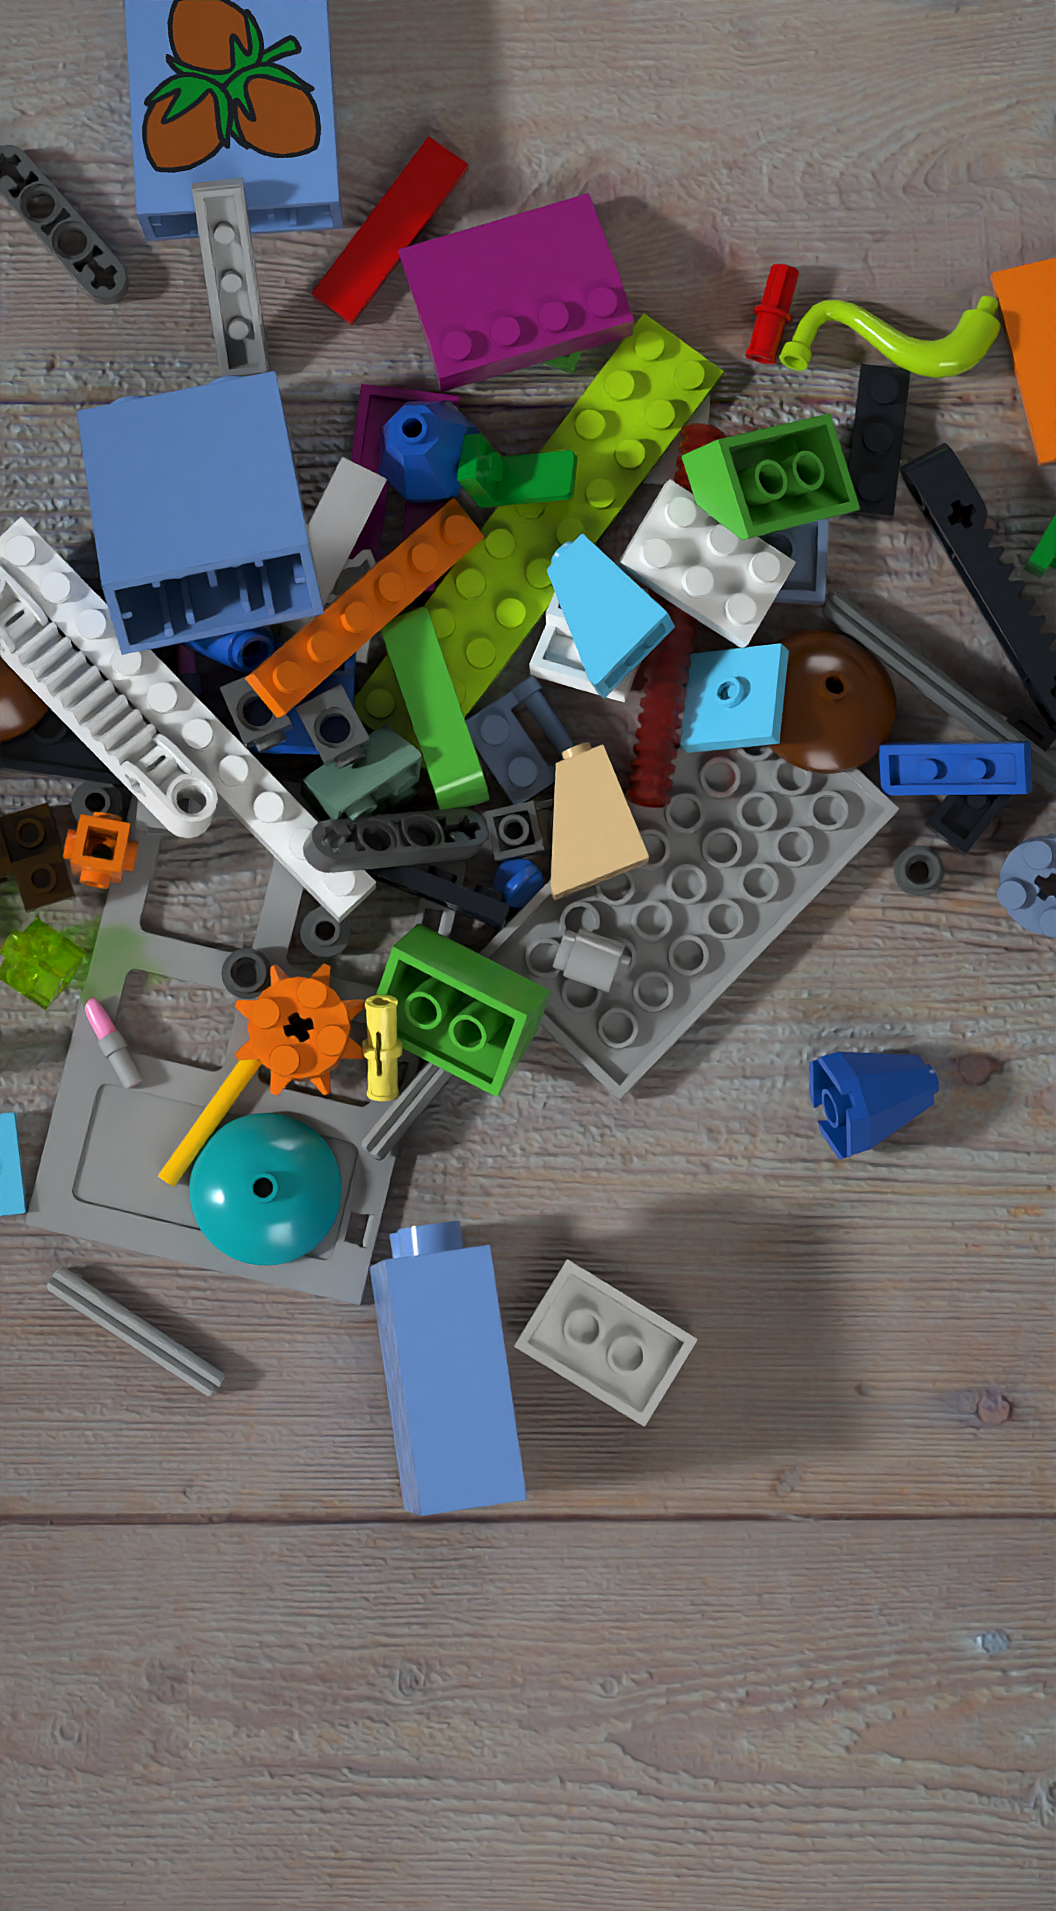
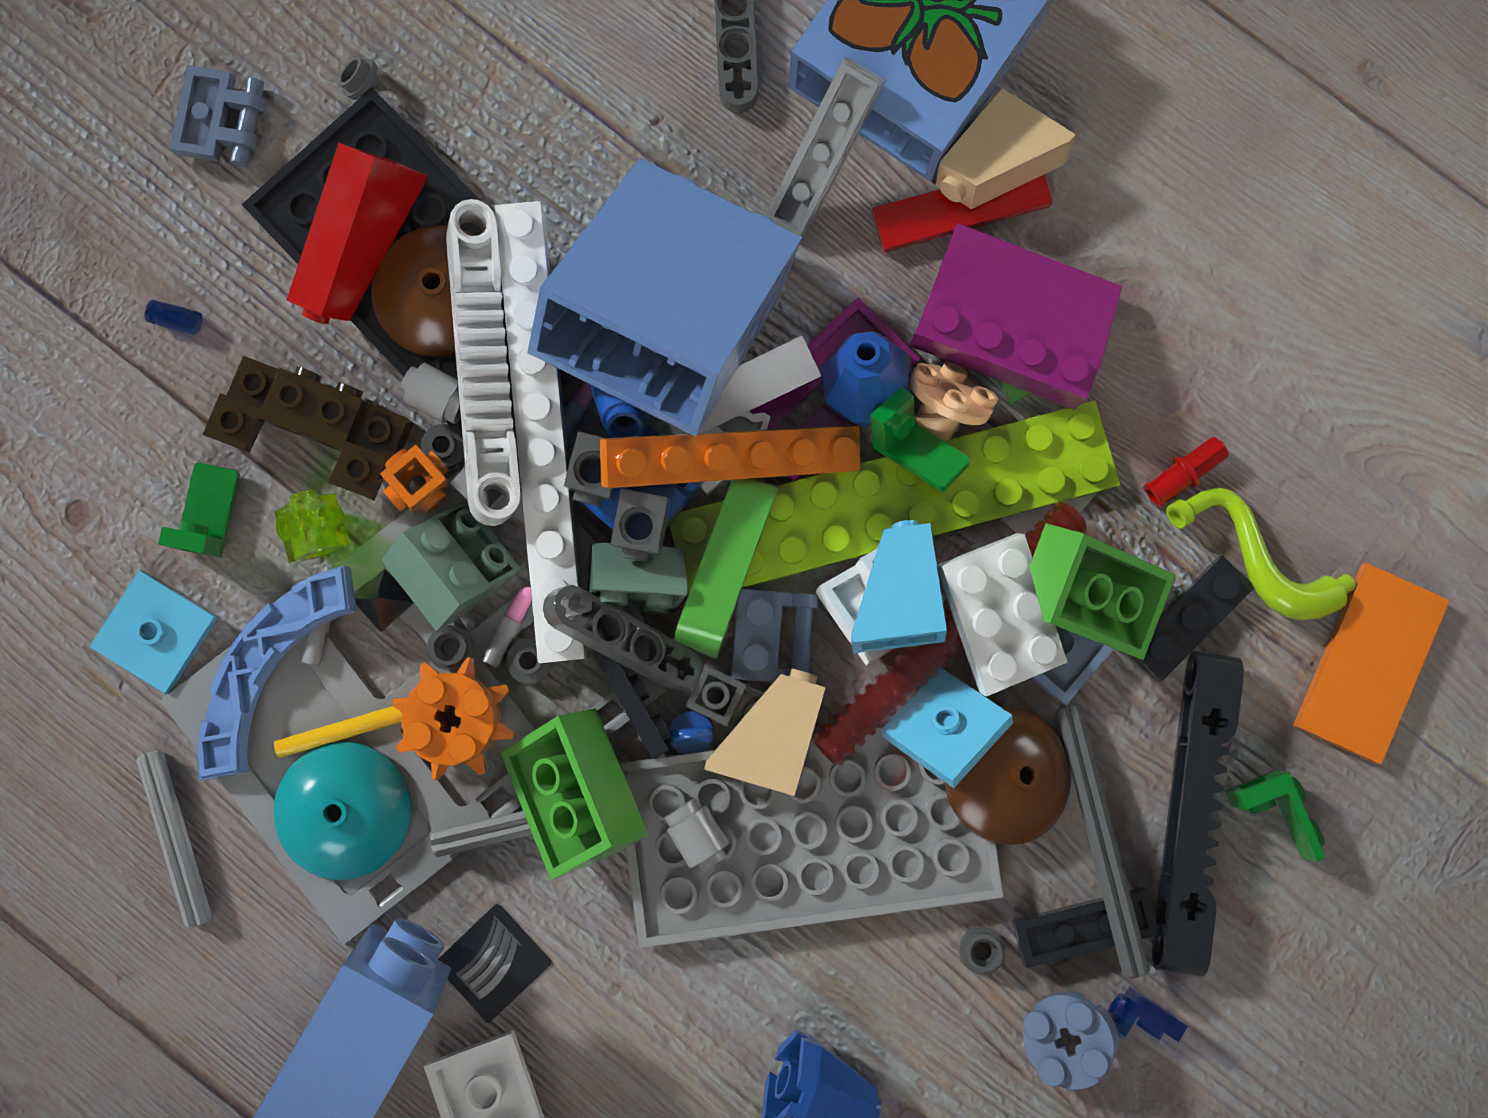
camera: 35 degrees right, 0 degrees up
(56, 760) = (432, 393): none -> light grey brick
(81, 1115) = (254, 657): none -> medium blue tile
(153, 980) = (383, 600): none -> black slope
(189, 899) = (449, 564): none -> sand green slope
(283, 915) = (508, 627): none -> light grey piece
(382, 1047) = (498, 778): light yellow pin -> none
(388, 154) = (1002, 151): none -> tan slope
(508, 1214) = (494, 963): none -> black sticker
(514, 412) = (949, 399): none -> light nougat plate
(956, 768) = (1068, 904): blue plate -> none

